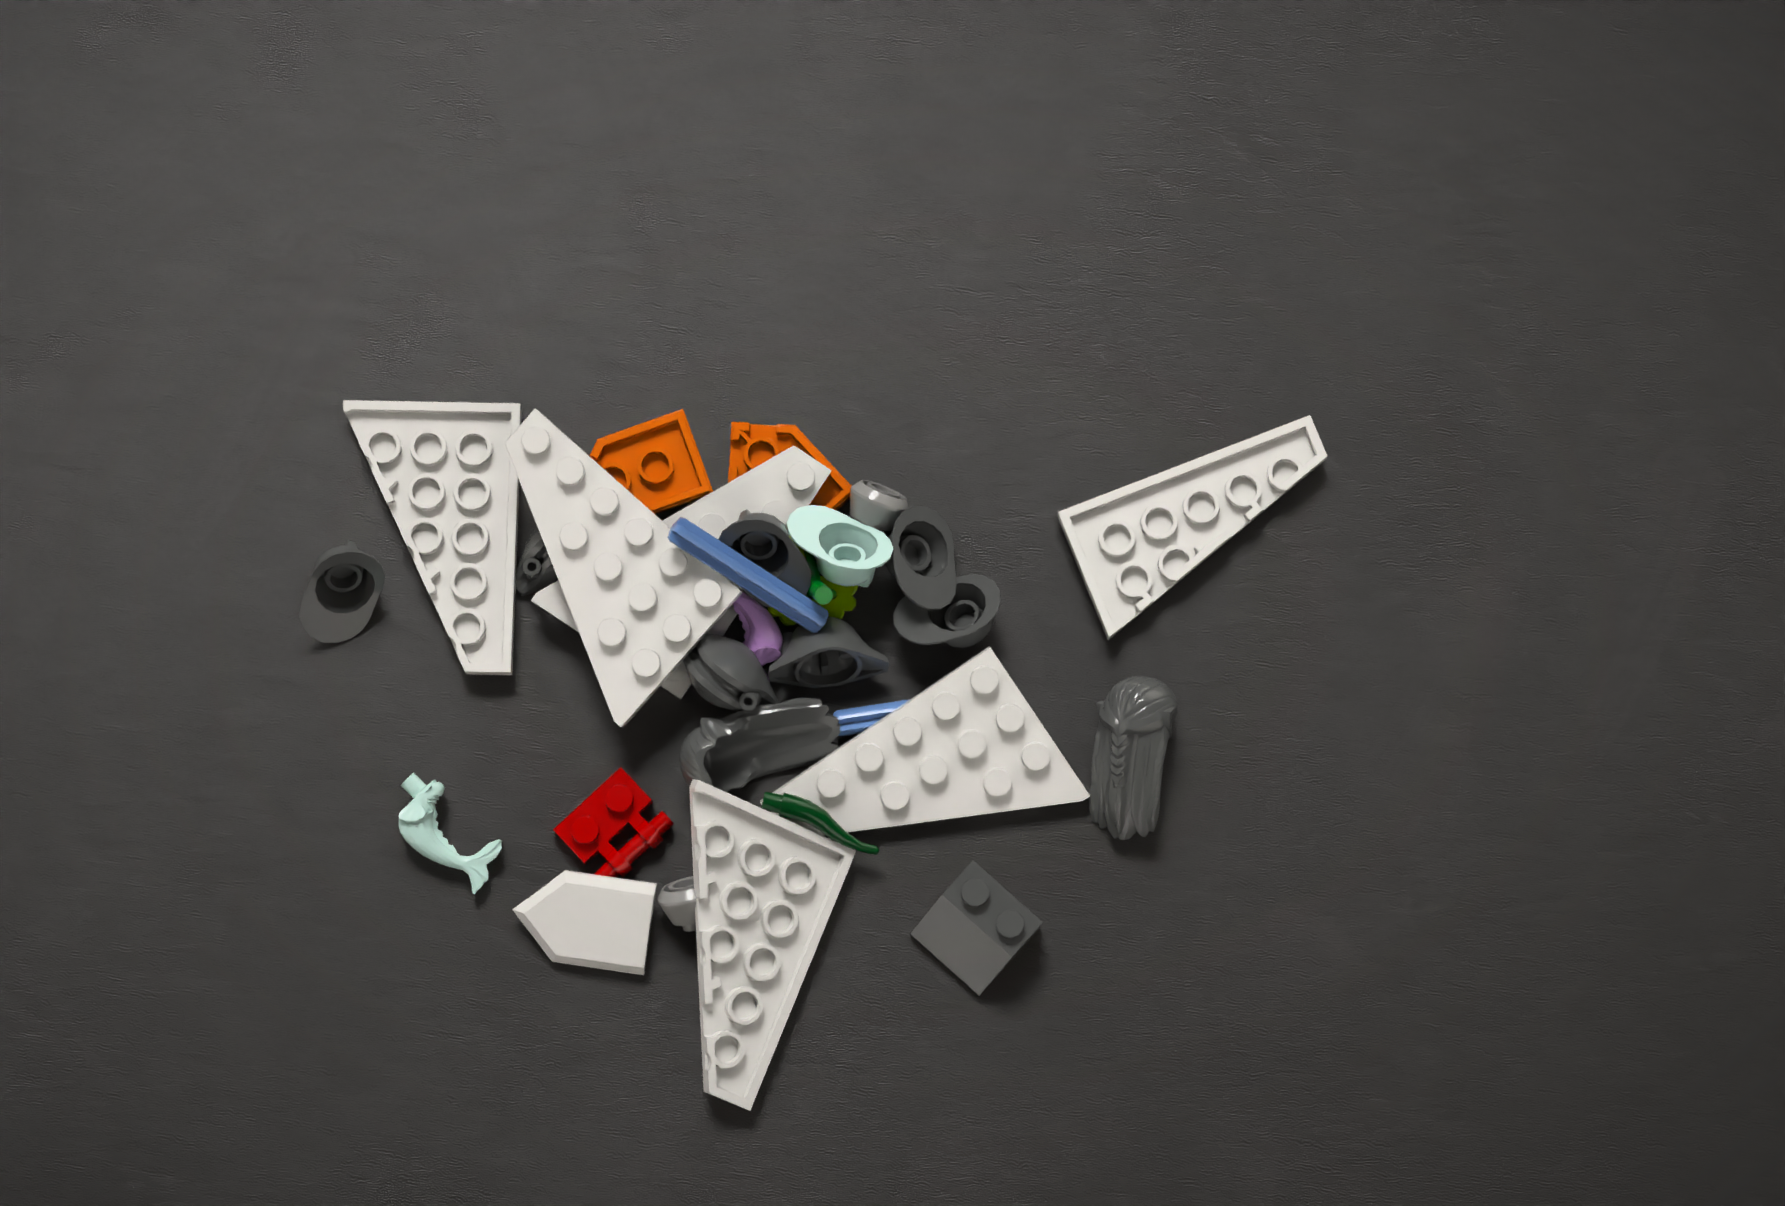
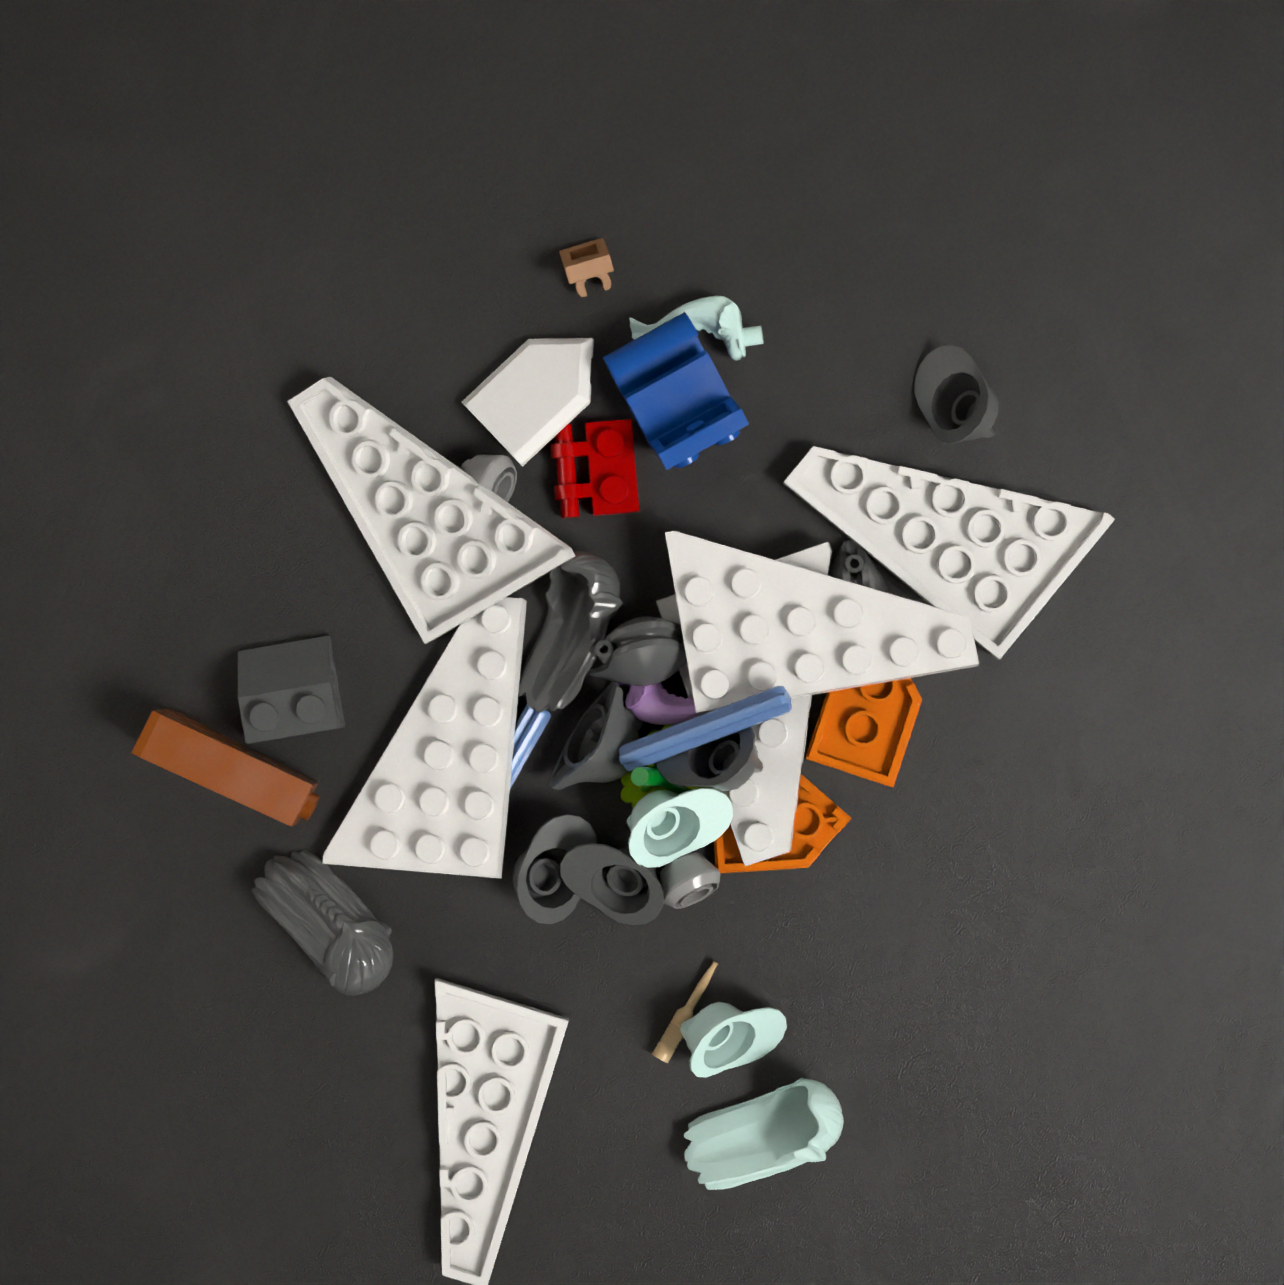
camera: 130 degrees right, 10 degrees up
(455, 960) = (586, 262): none -> medium nougat tile
(506, 806) = (675, 392): none -> blue piece
(806, 811) = (483, 627): dark green animal -> none
(971, 382) = (728, 1038): none -> light aqua piece
(988, 430) = (672, 1035): none -> tan piece
(1023, 299) = (764, 1135): none -> light aqua hair
(1073, 924) = (226, 767): none -> dark orange slope

